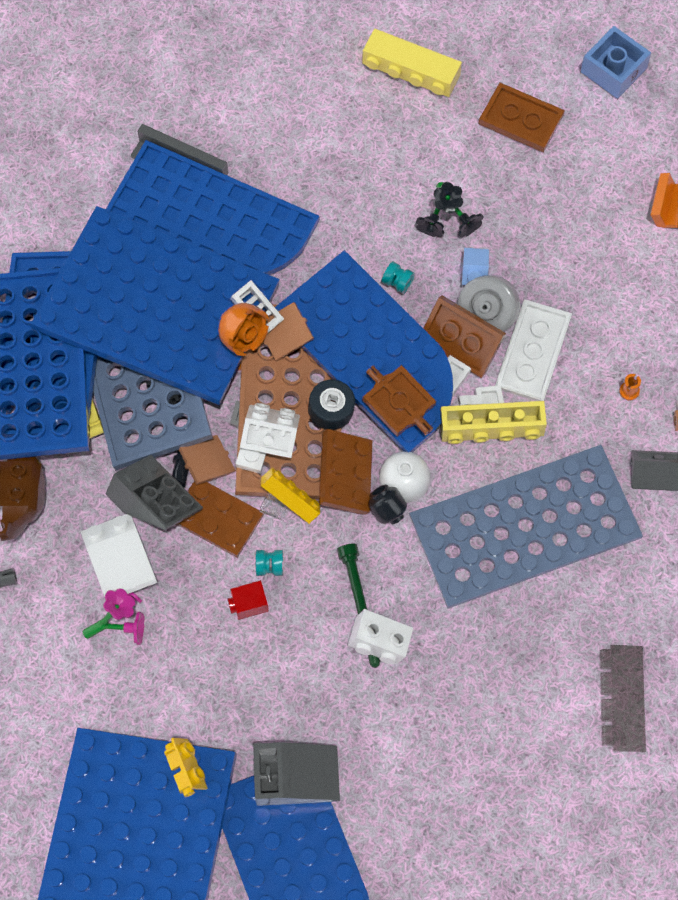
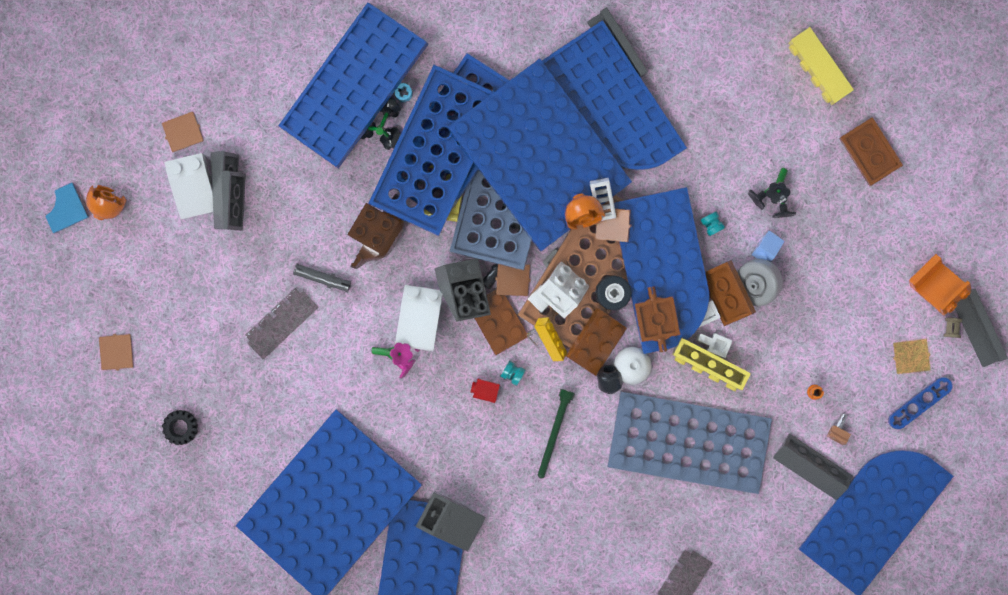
camera: 25 degrees right, 20 degrees up
(181, 755) = (385, 487): yellow hinge -> none
(380, 637) = (553, 464): white brick -> none
(533, 350) = (770, 327): white tile -> none
(615, 62) = (961, 150): medium blue brick -> none

